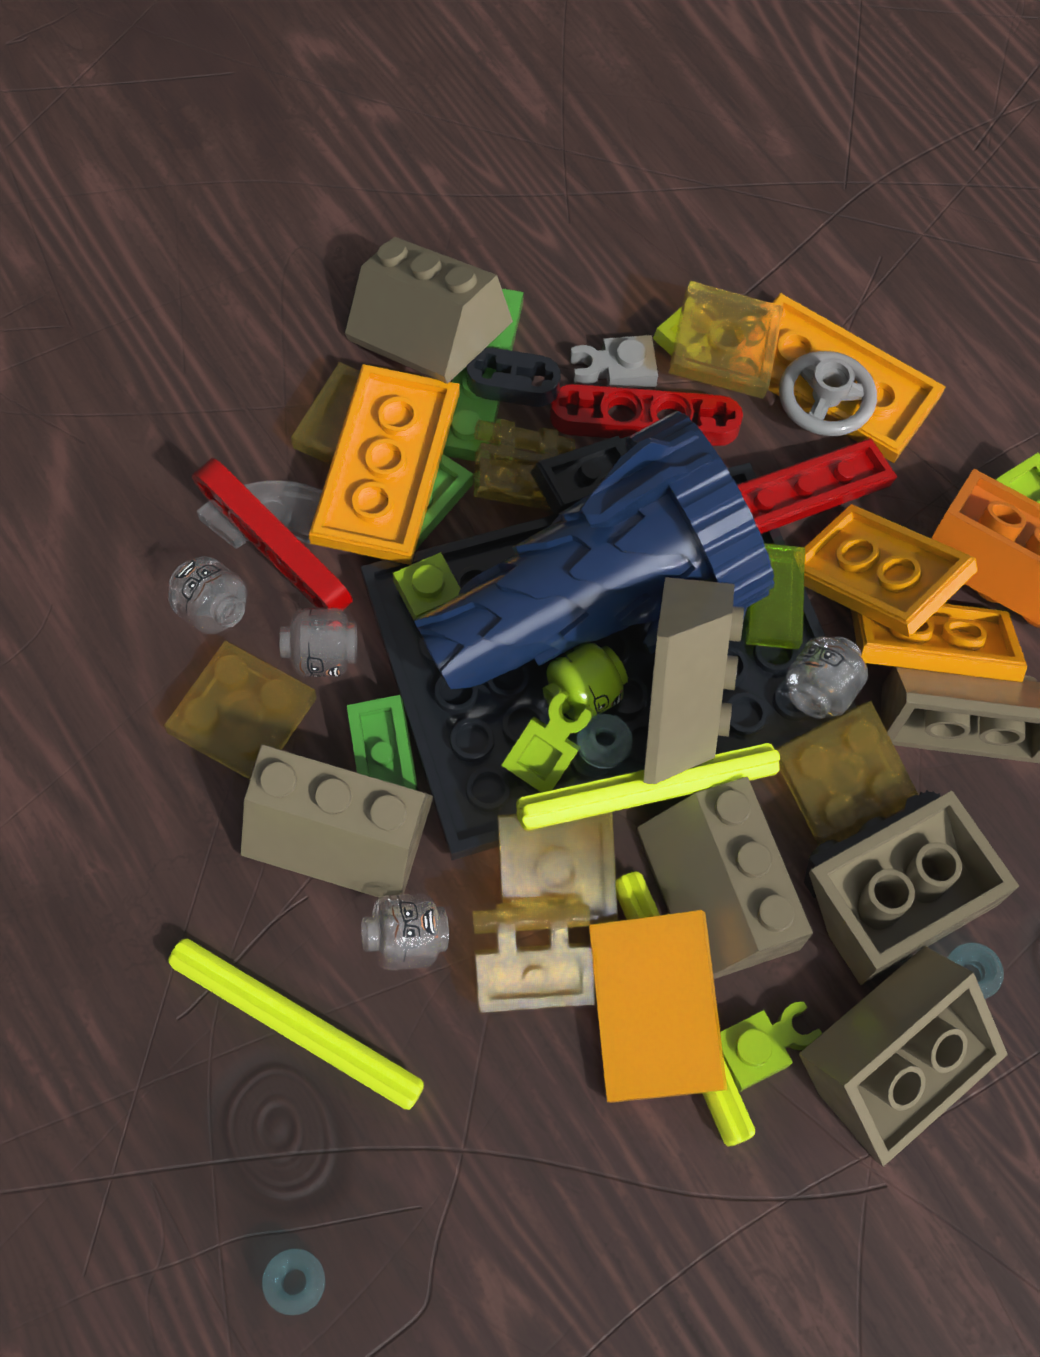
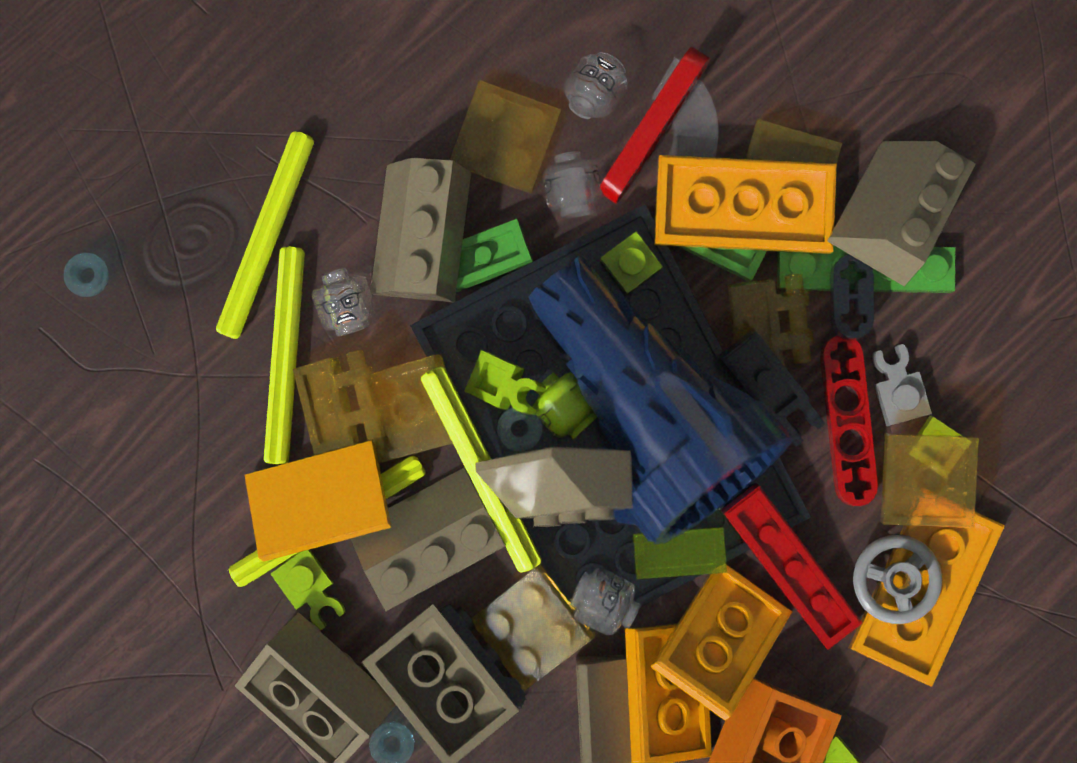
camera: 80 degrees right, 20 degrees up
(458, 1024) = (284, 355): none -> neon yellow axle

